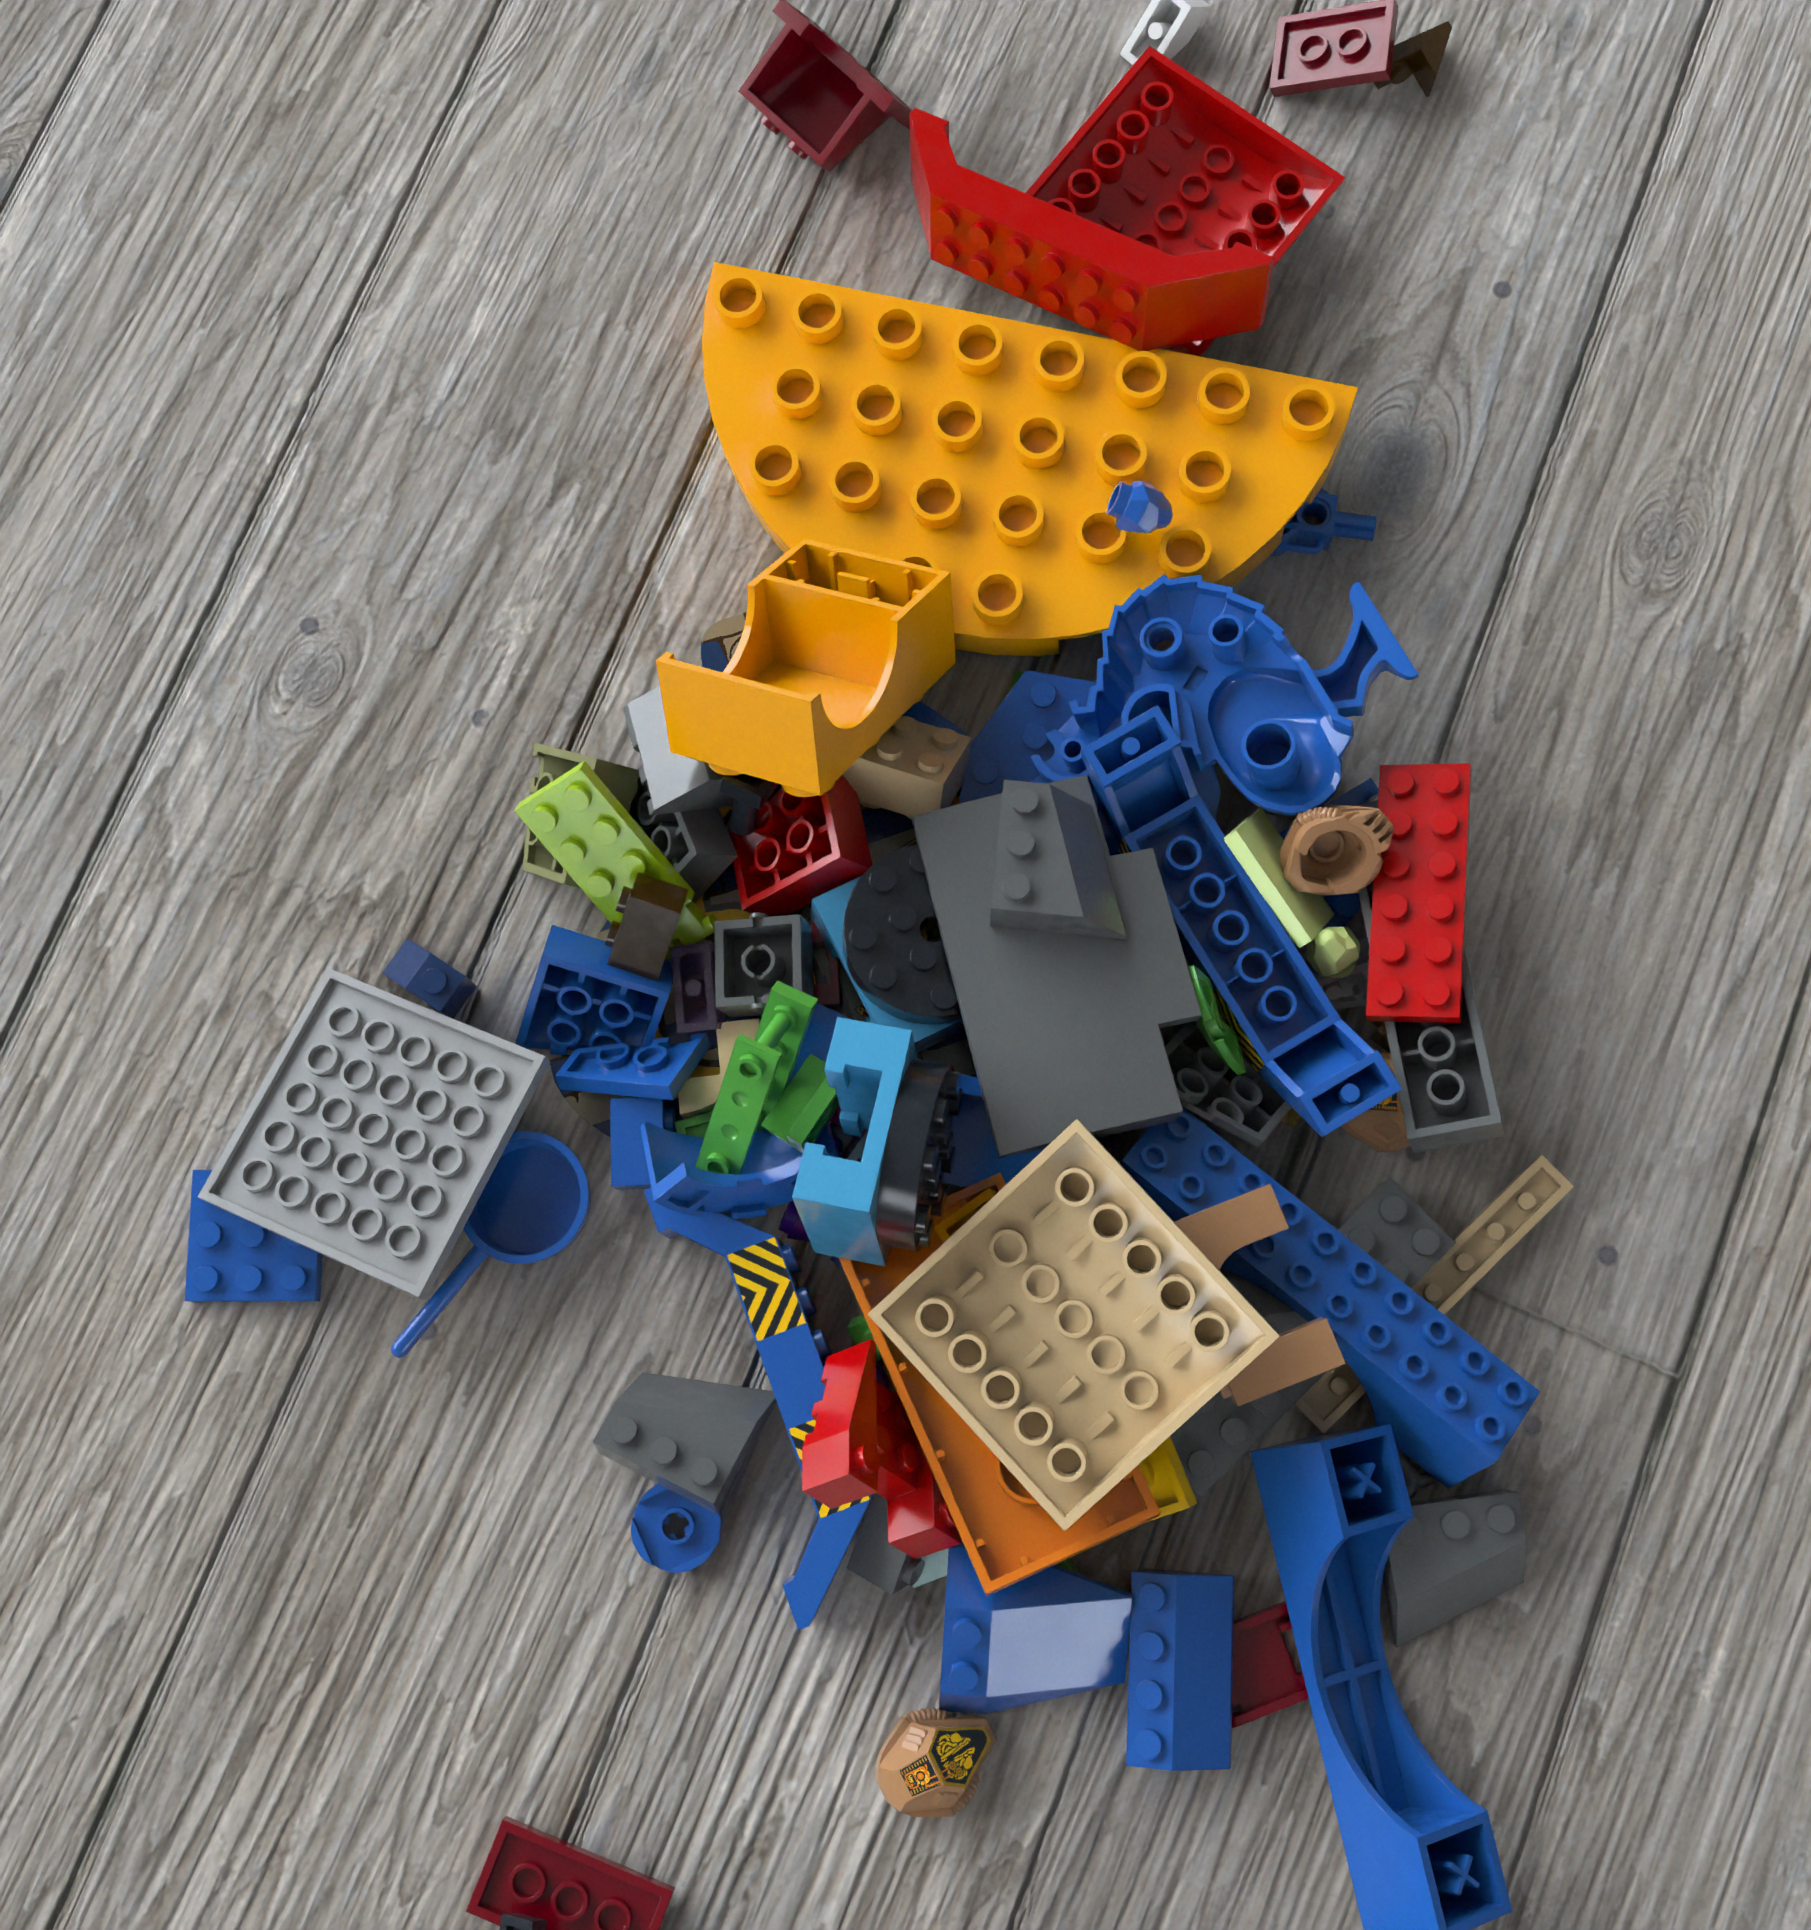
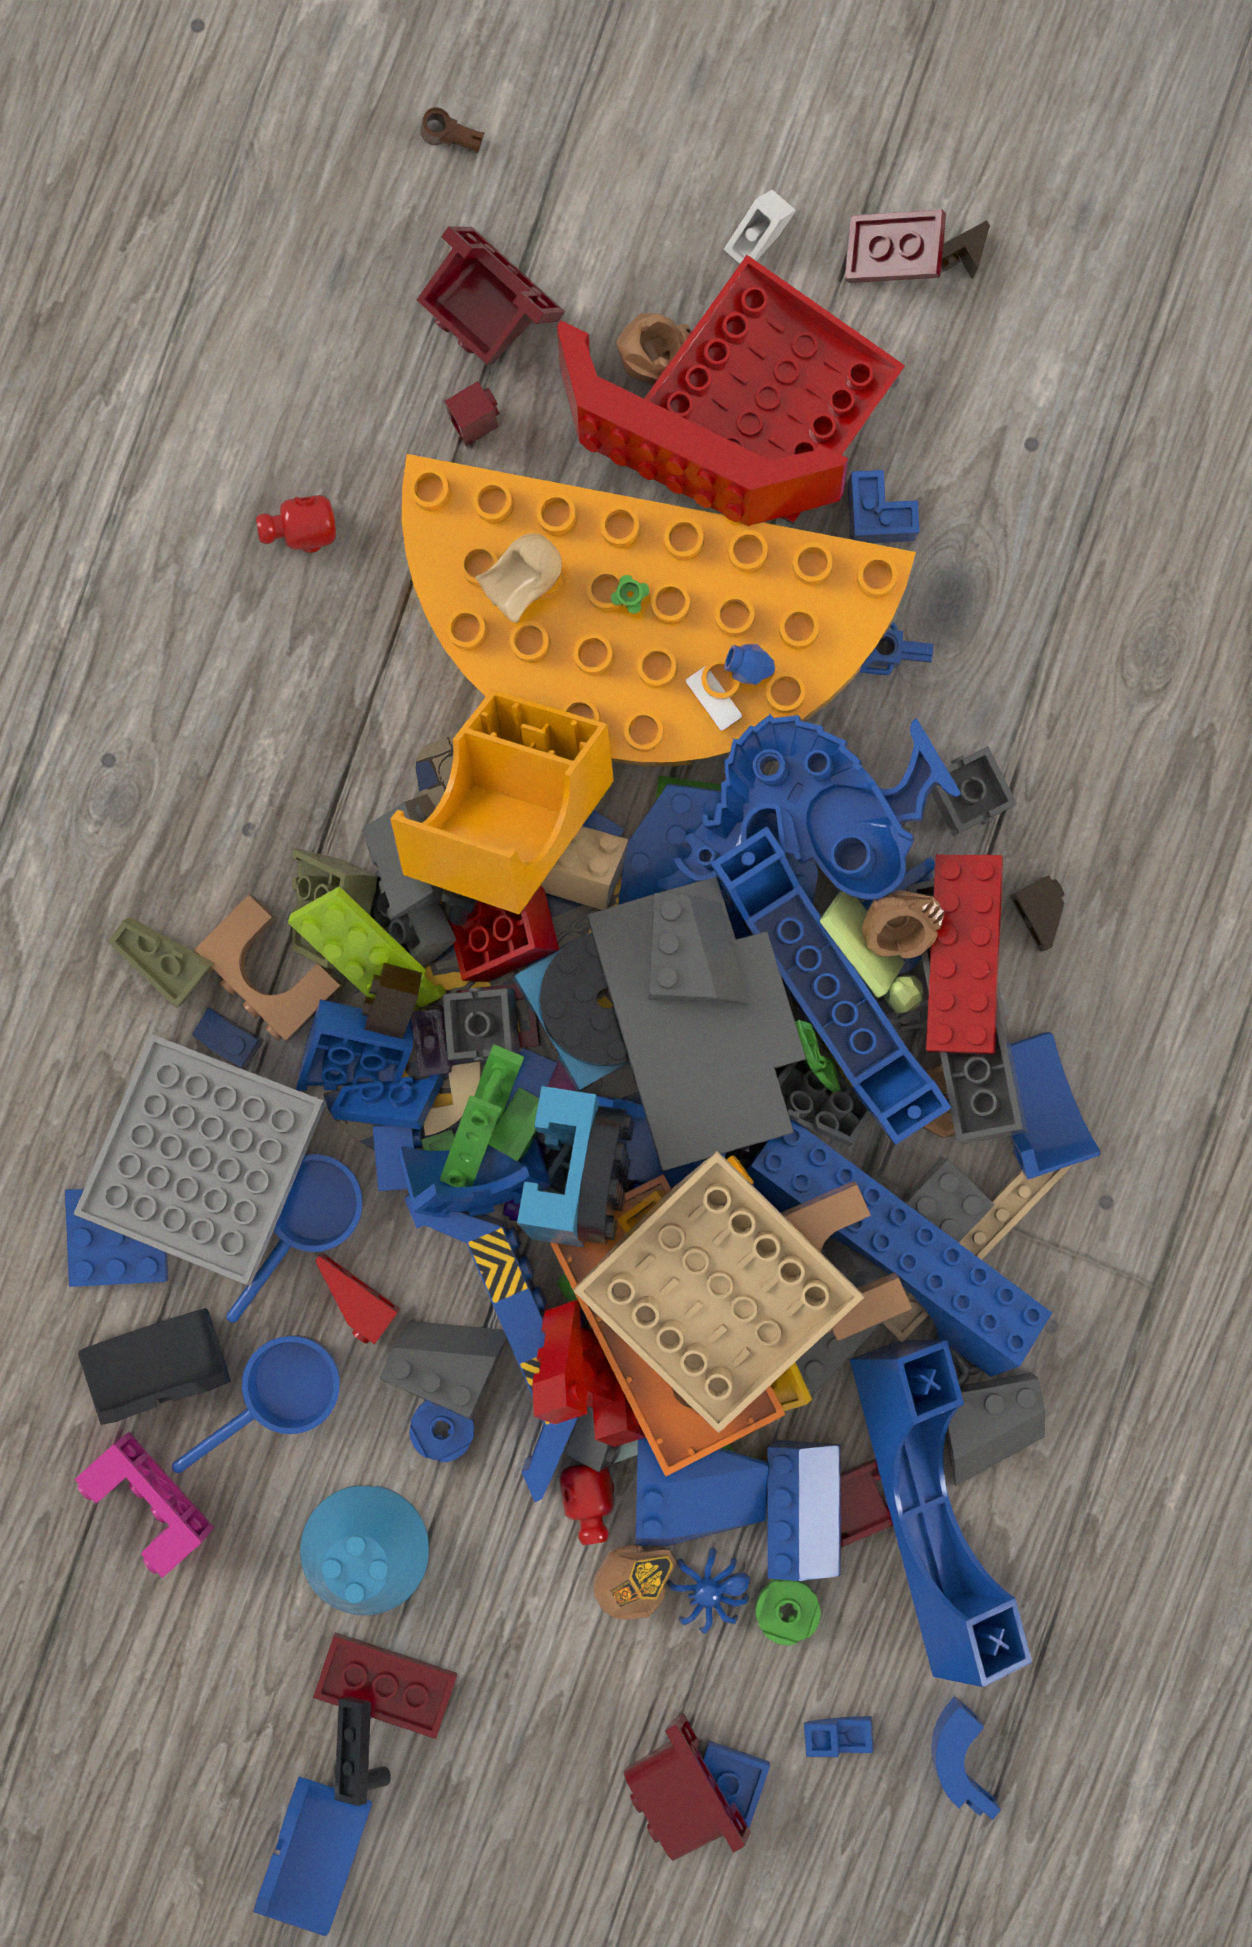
camera: 10 degrees left, 10 degrees up
(237, 1549) = (169, 1504): none -> dark pink plate
(286, 1415) = (154, 1364): none -> black panel
(349, 873) = (163, 962): none -> olive wing
(437, 865) = (228, 950): none -> medium nougat arch
(463, 1454) = (286, 1388): none -> blue piece
(557, 1697) = (364, 1550): none -> dark azure cone
(576, 1345) = (360, 1304): none -> red slope
(579, 344) = (302, 522): none -> red piece
(799, 219) = (473, 412): none -> dark red piece
(850, 391) = (522, 574): none -> tan piece
(874, 1634) = (587, 1498): none -> red piece
(987, 411) = (639, 592): none -> bright green plate
(1012, 152) = (650, 345): none -> medium nougat helmet
(1041, 1785) = (709, 1592): none -> blue animal
(1100, 575) = (721, 710): none -> white sticker
(1165, 1844) = (797, 1626): none -> bright green plate
(1299, 351) = (873, 518): none -> blue panel
(1429, 707) = (981, 788): none -> dark grey brick
(1516, 856) = (1041, 910): none -> dark brown slope
(1539, 1144) = (1053, 1121): none -> blue panel

